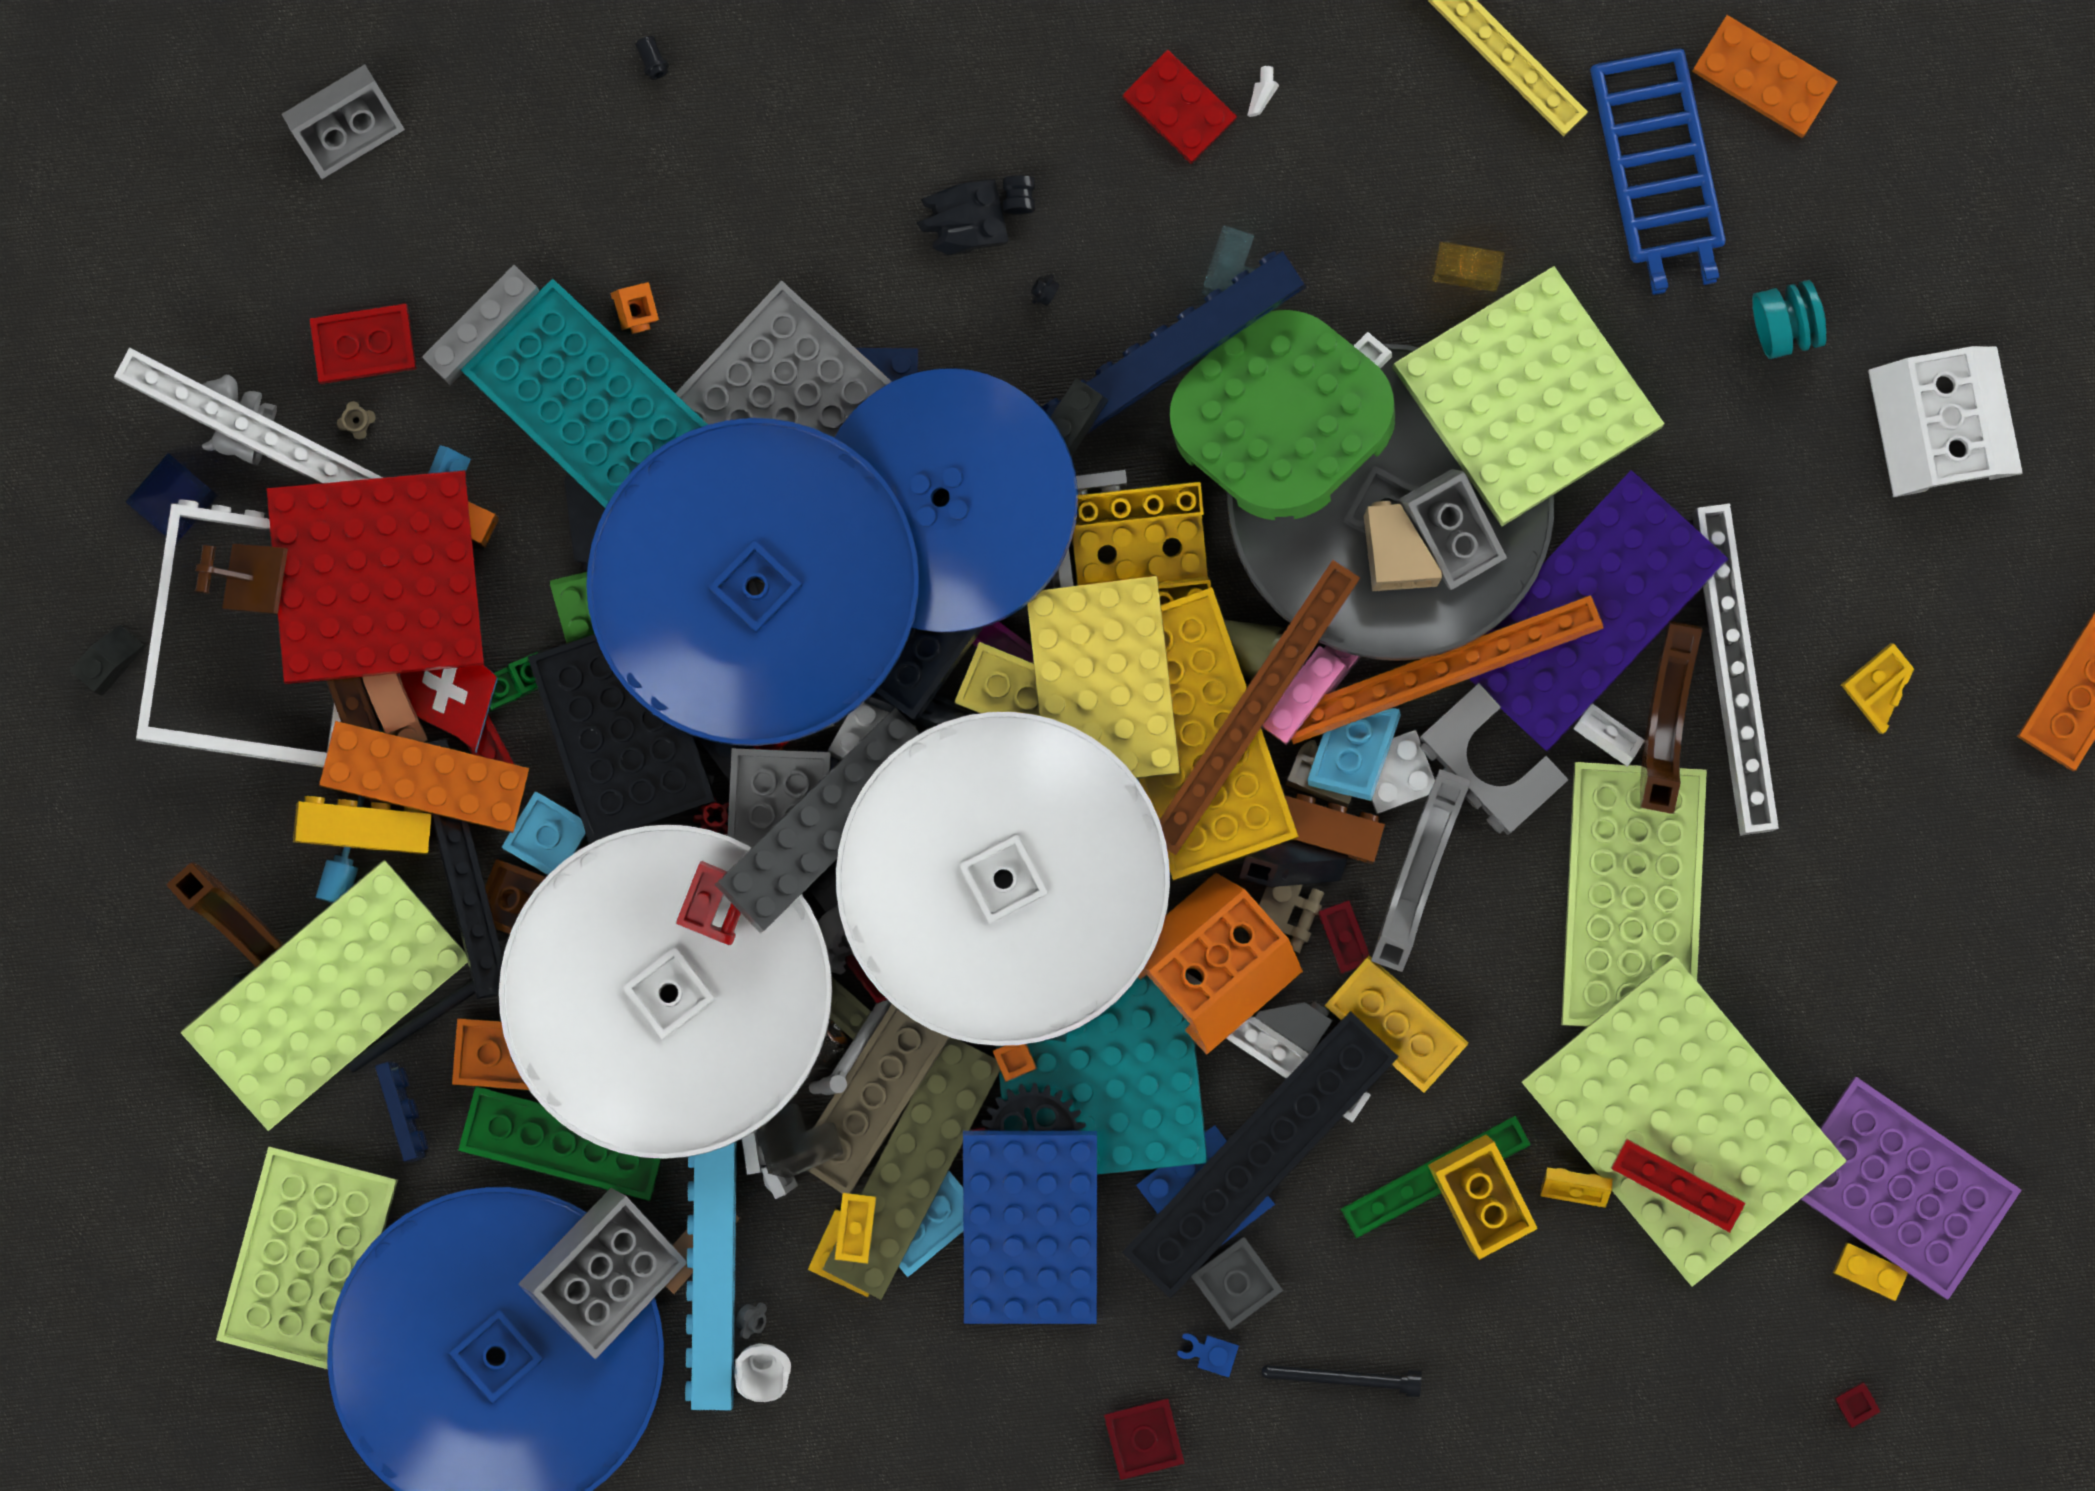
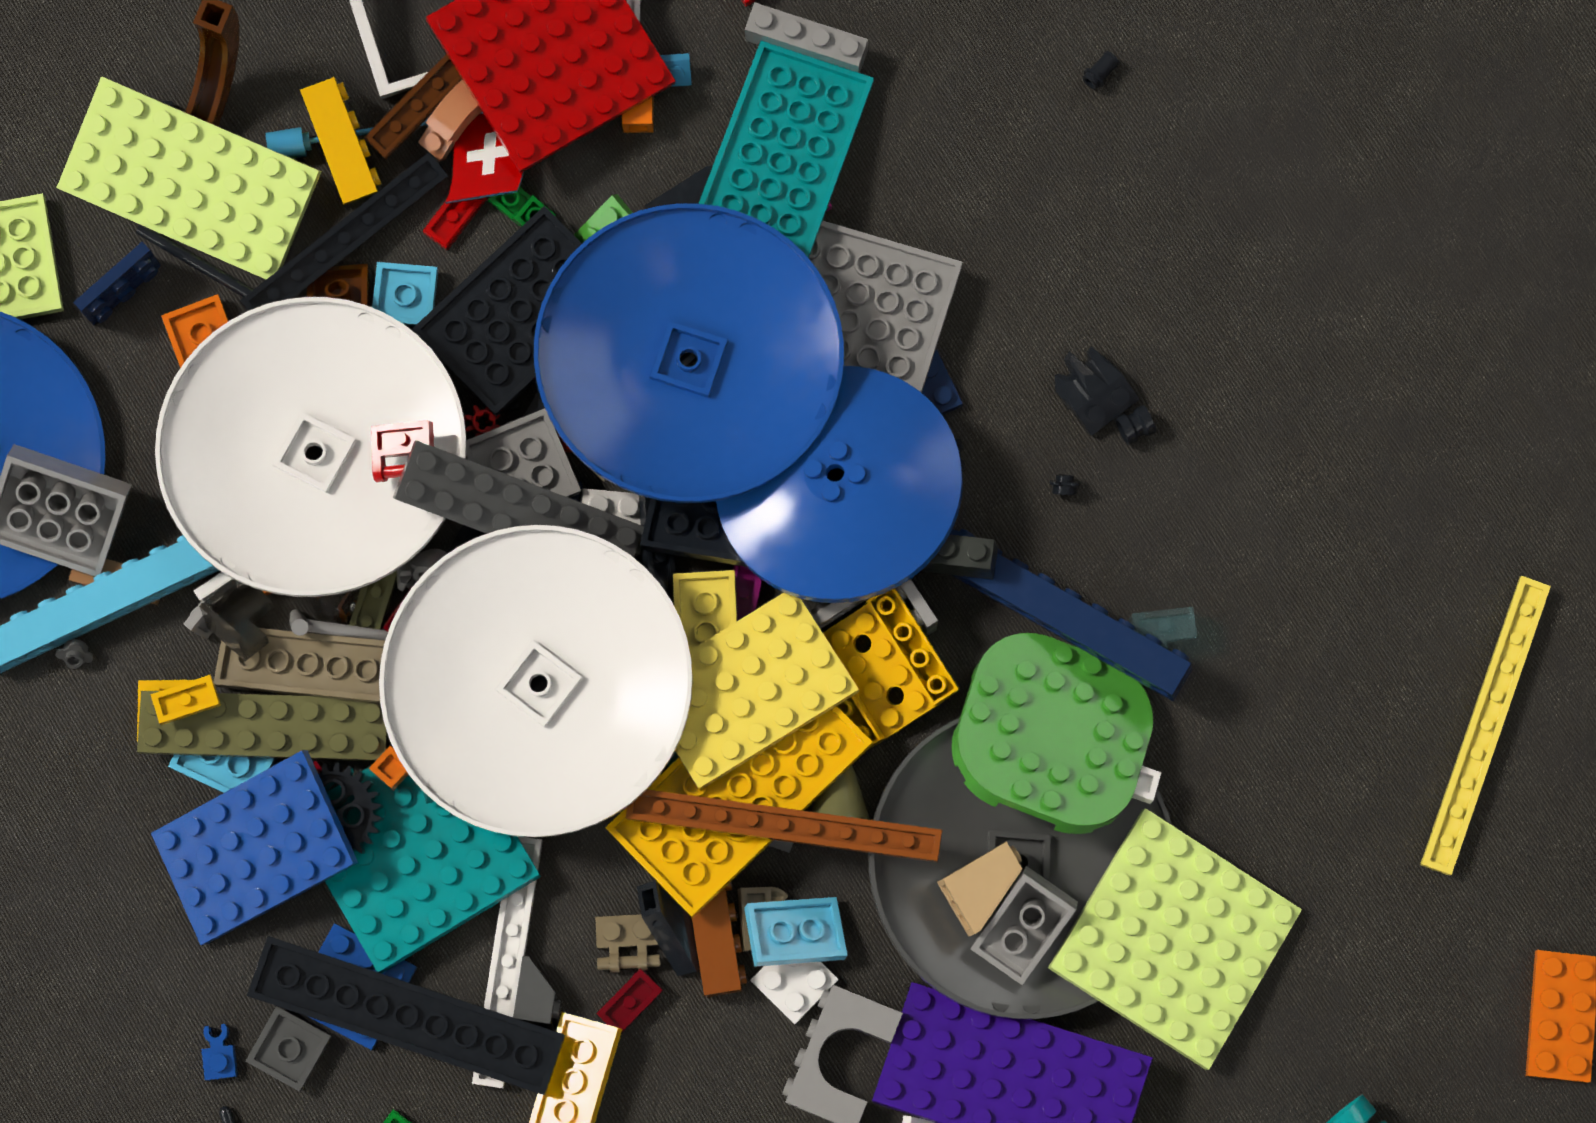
camera: 65 degrees right, 5 degrees down
(424, 777) = (404, 170): orange plate -> none
(531, 1138) = (141, 381): green plate -> none
(642, 299) = (893, 156): orange brick -> none
(762, 1373) = (31, 681): white helmet -> none
(1144, 1439) = (120, 1032): dark red plate -> none
(1179, 106) = (1280, 524): red plate -> none
(1234, 975) = (547, 920): orange slope -> none
(1262, 91) = (1328, 588): white bar -> none
(1316, 678) = (843, 871): bright pink bracket -> none
(1419, 870) = (713, 1038): light grey arch -> none
(1451, 667) = (897, 976): orange plate -> none
(1468, 266) = (1263, 834): clear yellow brick -> none
(1690, 116) = (1468, 985): blue bar -> none

